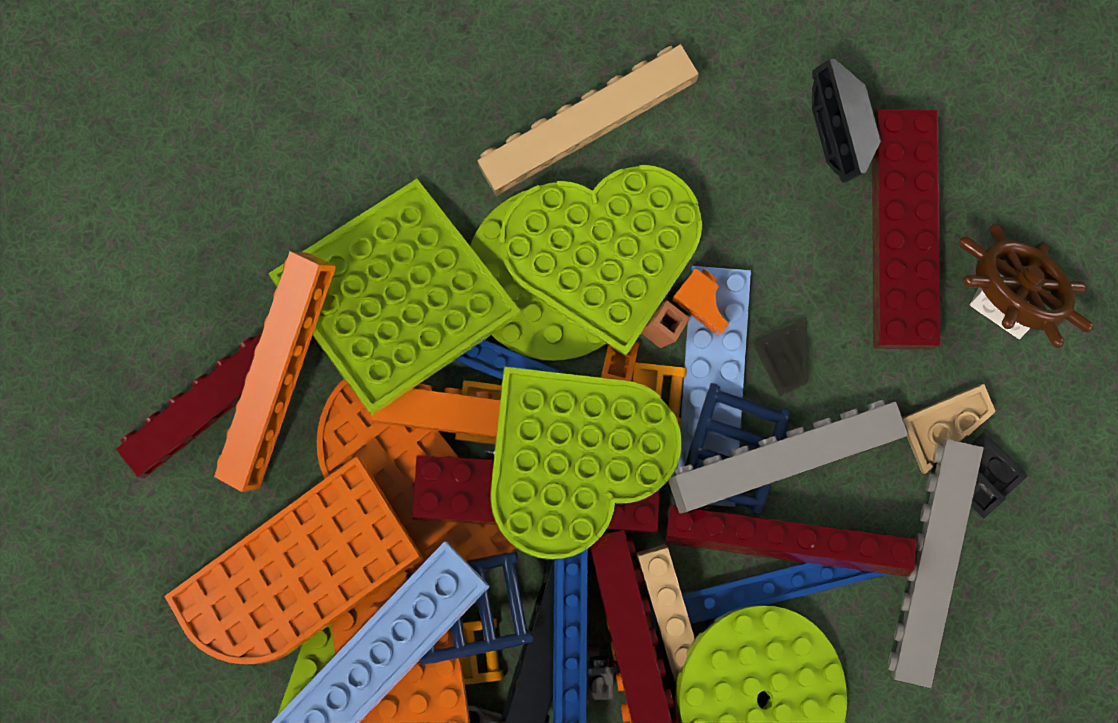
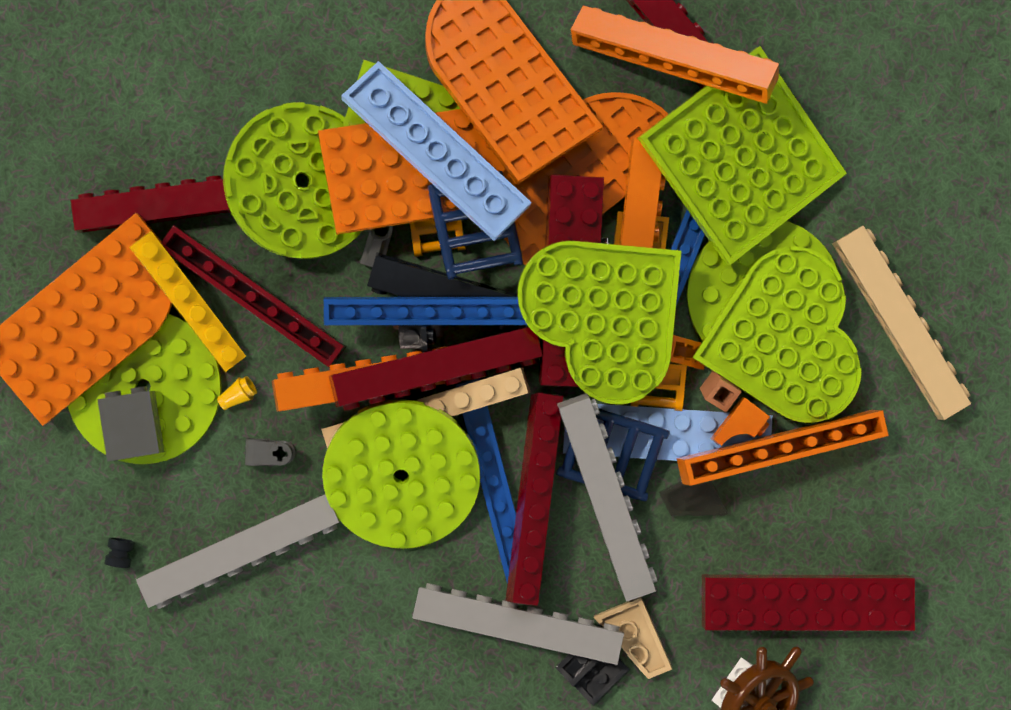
camera: 85 degrees right, 5 degrees up
(730, 256) = (782, 447): none -> orange brick
(844, 120) = (904, 548): black wedge -> none

